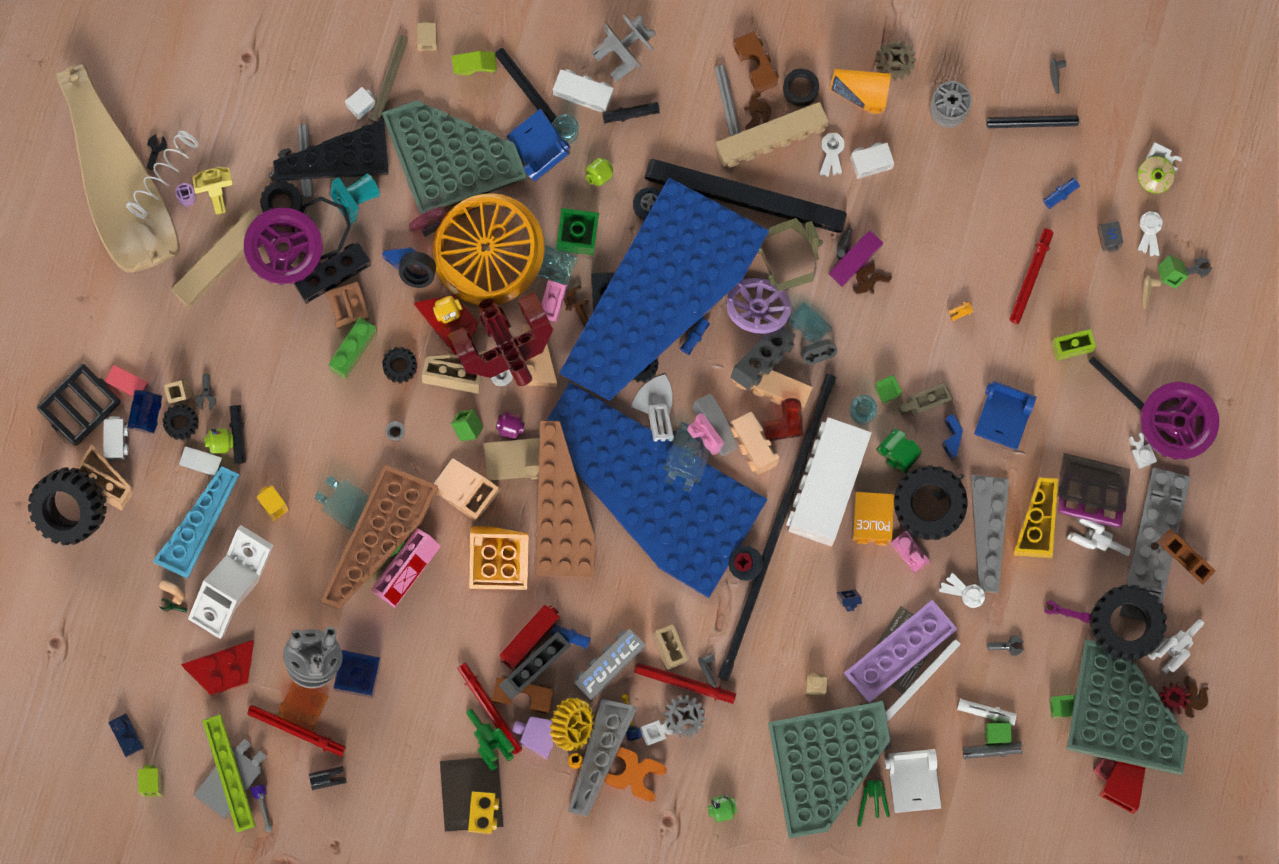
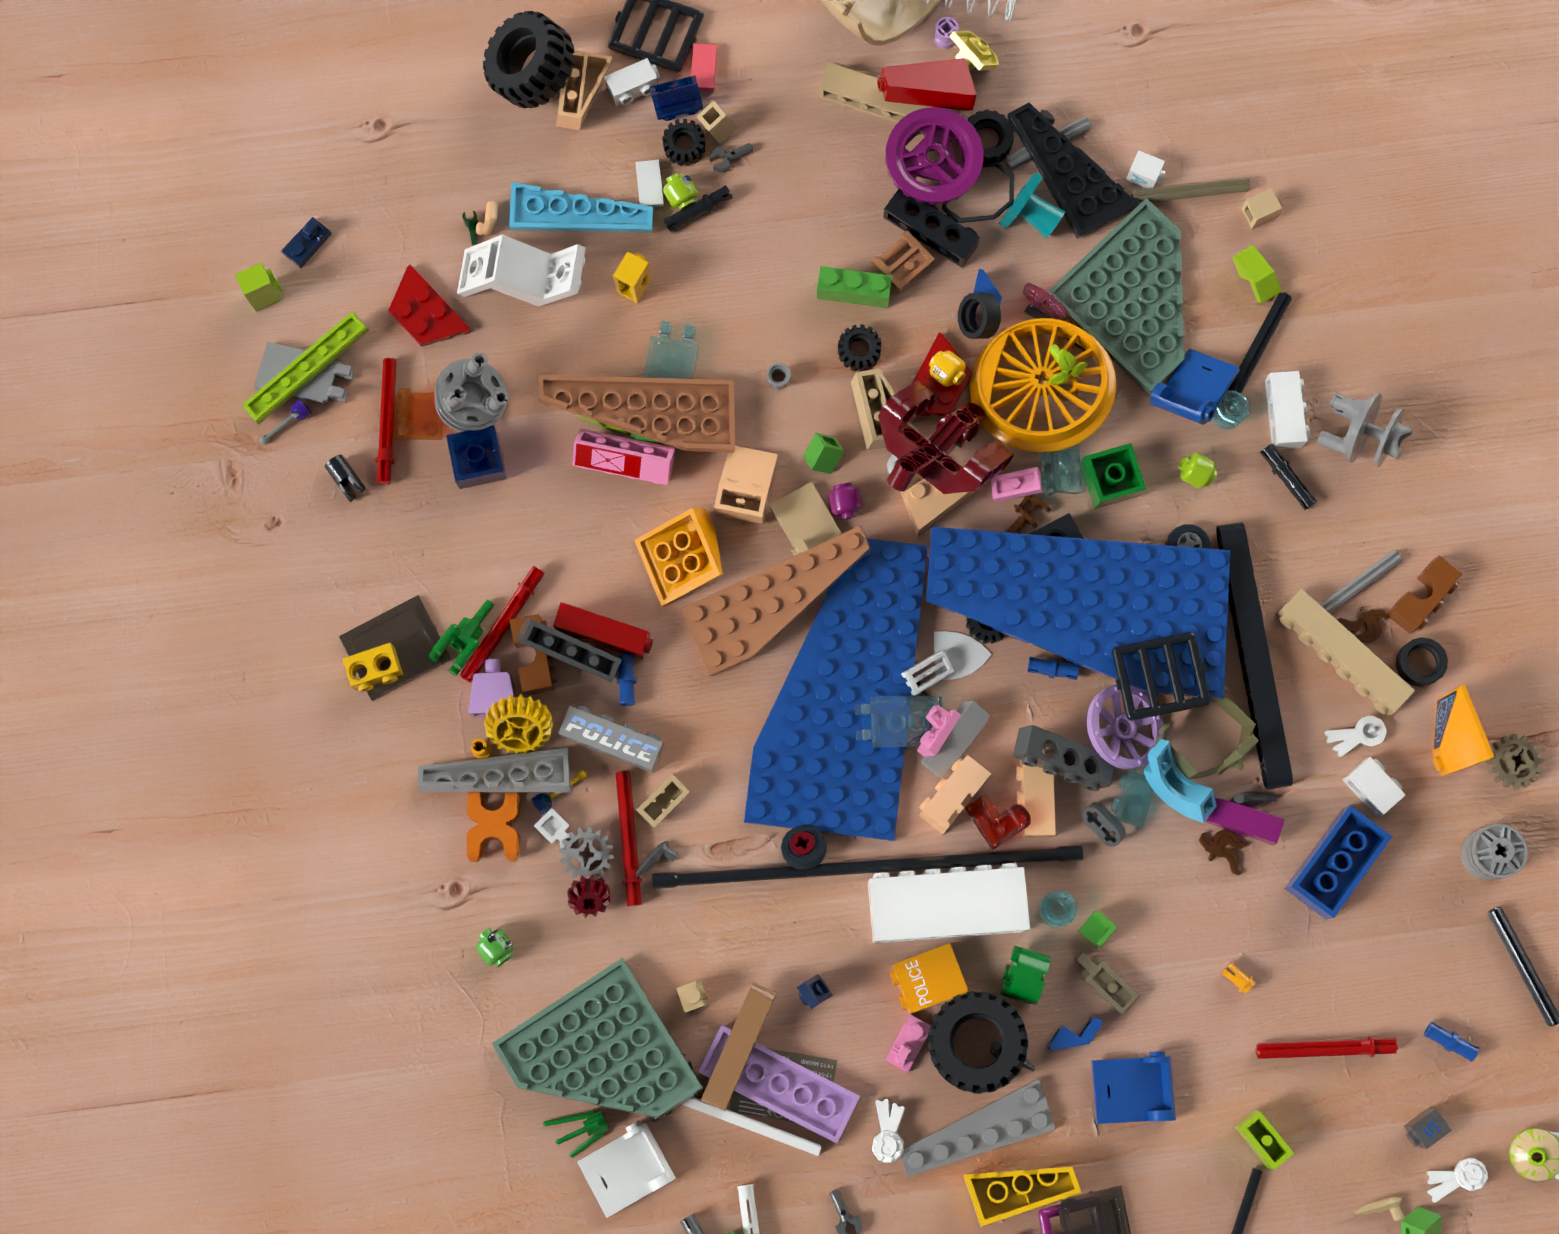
camera: 75 degrees right, 0 degrees up
(226, 223) = (929, 84): none -> slope
(486, 224) = (1067, 365): none -> lime plant
(715, 726) = (588, 896): none -> dark red gear
(758, 278) = (1155, 708): none -> black bar
(815, 292) = (1175, 788): none -> medium azure arch
(864, 665) = (738, 1046): none -> medium nougat beam
(913, 208) = (1338, 862): none -> blue brick

